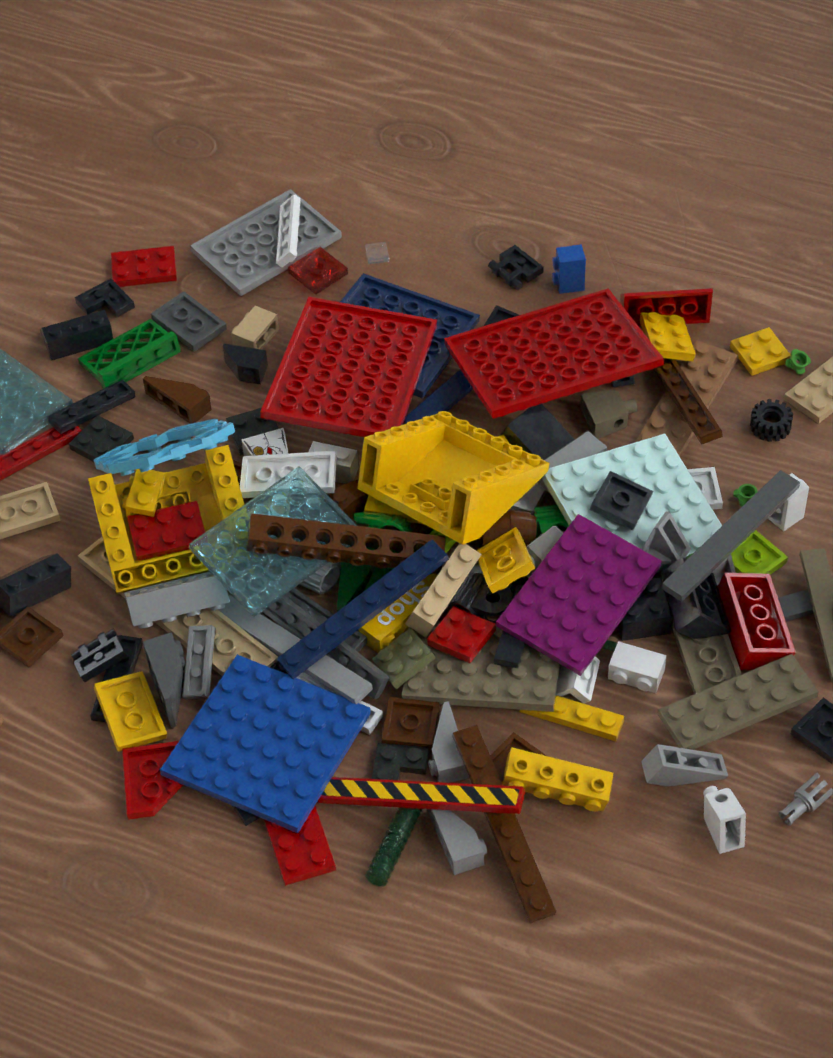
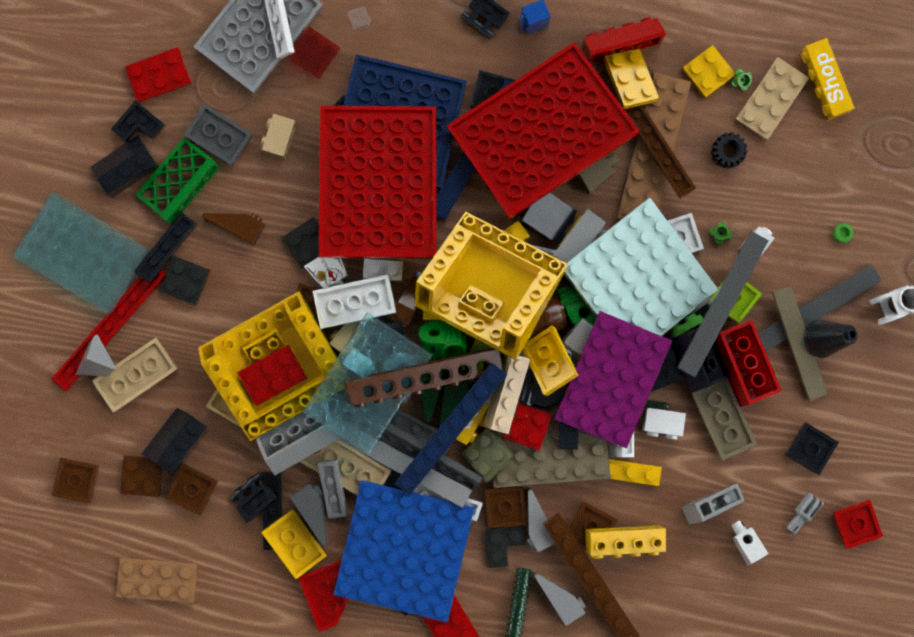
camera: 15 degrees left, 35 degrees up
(144, 492) = (246, 351): yellow bracket -> none
(206, 434) = (265, 322): medium azure plate -> none
(246, 363) = (282, 175): black slope -> none
(424, 795) = (533, 578): tile -> none
(621, 500) = (630, 285): black plate -> none
(667, 541) = (669, 316): light grey slope -> none
(737, 703) = (745, 443): dark tan plate -> none

